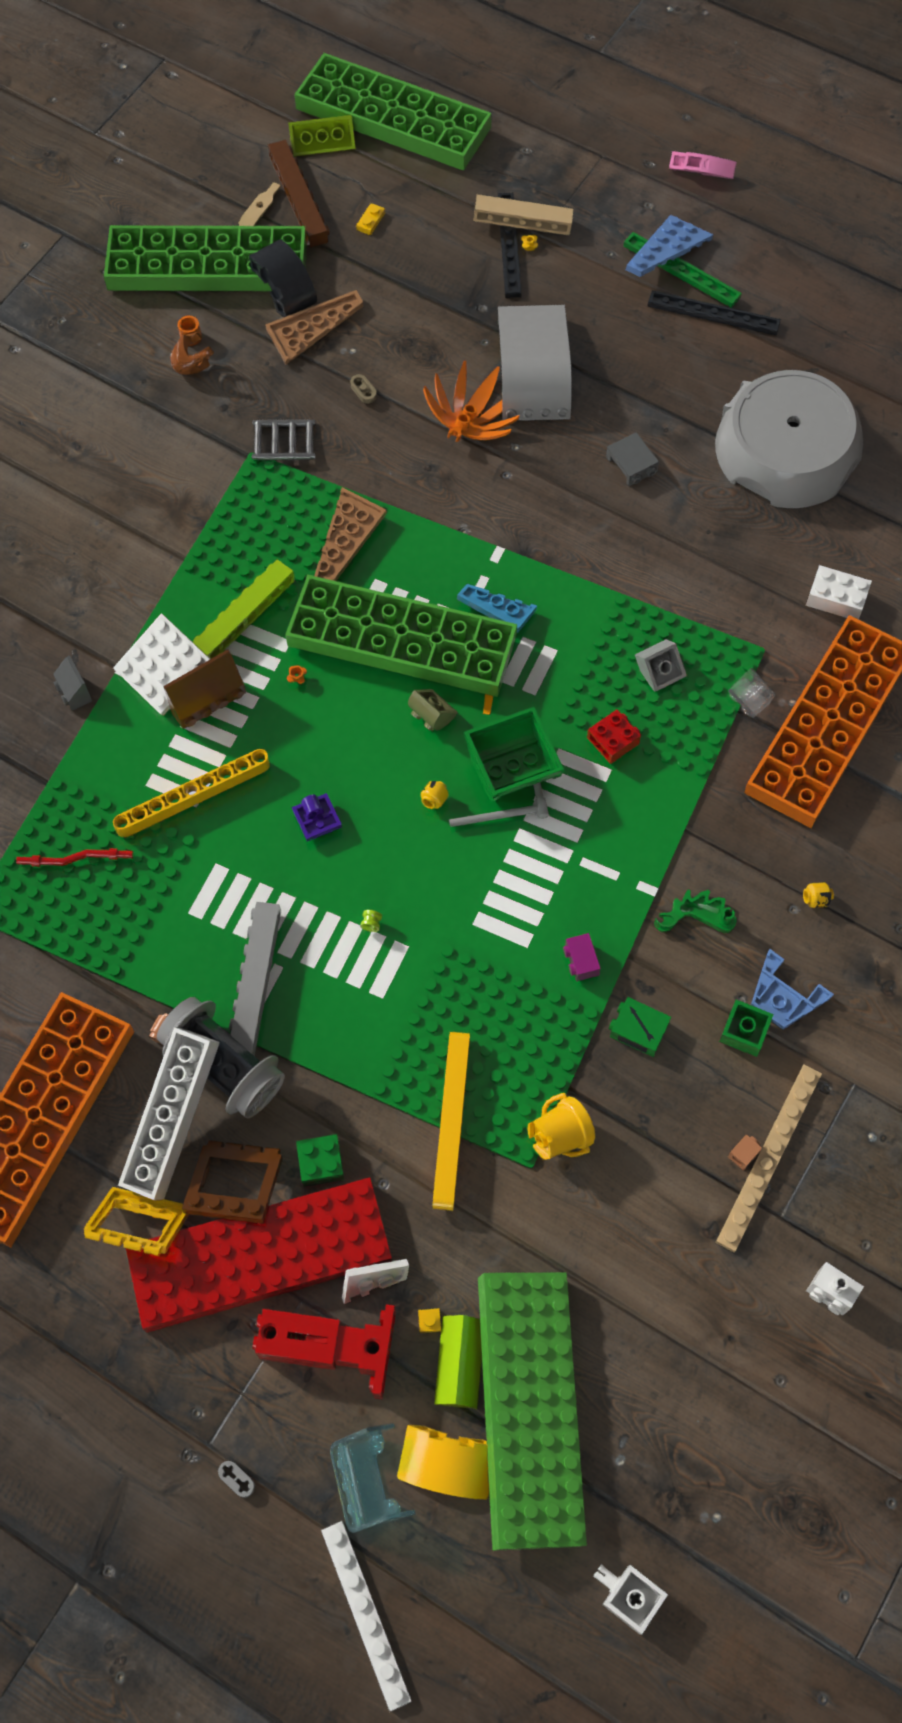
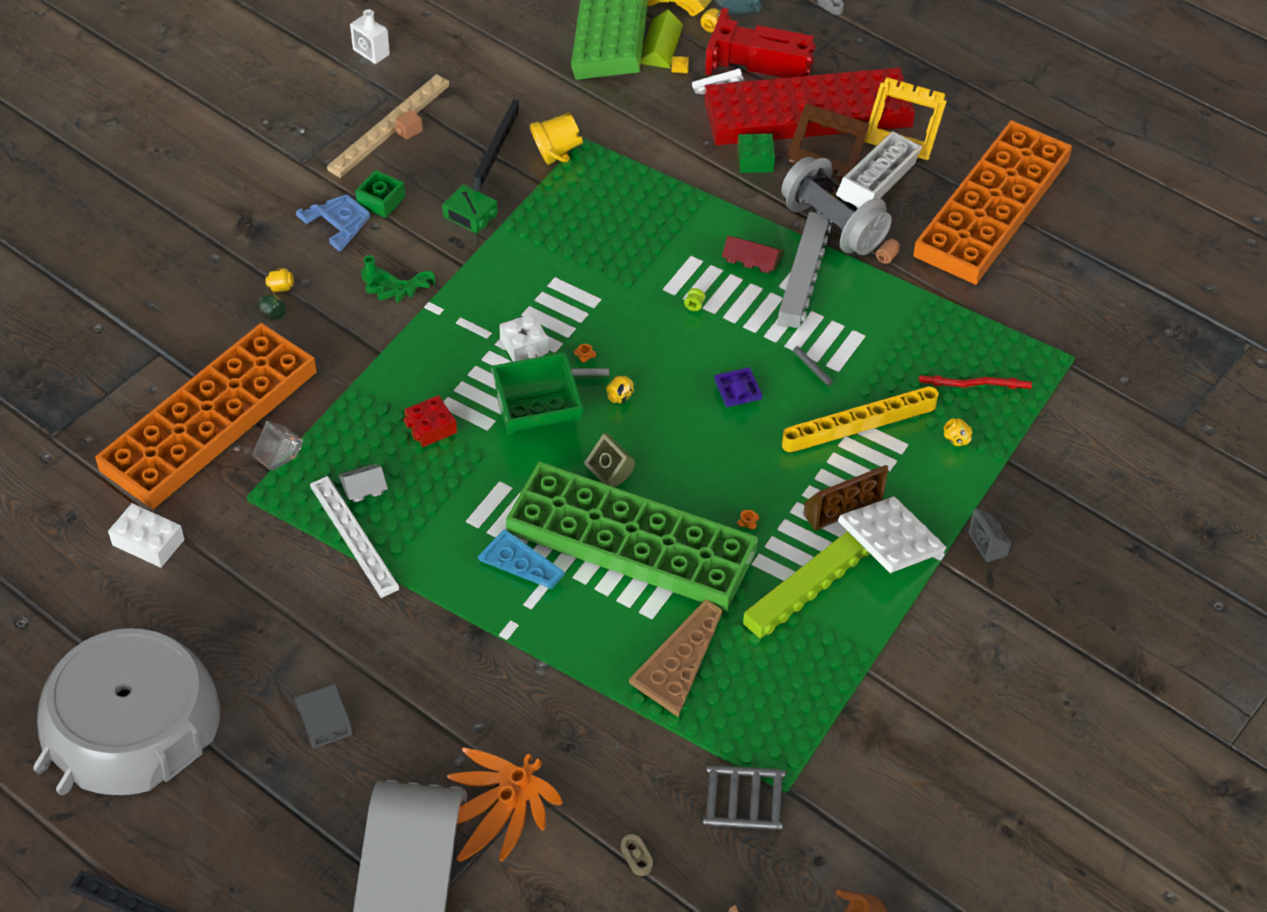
camera: 175 degrees left, 15 degrees down
(95, 786) = (957, 432): none -> yellow head
(241, 857) = (812, 365): none -> dark grey bar
(312, 995) = (752, 254): none -> dark red slope
(395, 1407) = (710, 19): none -> yellow head
(451, 1121) = (643, 163): yellow beam -> none
(477, 835) = (585, 352): none -> orange plate
(540, 841) = (524, 338): none -> white brick
(582, 957) = (508, 253): magenta brick -> none
(630, 1121) = (496, 145): none -> black tile
(653, 615) = (354, 537): none -> white tile
(814, 861) = (272, 307): none -> clear green head

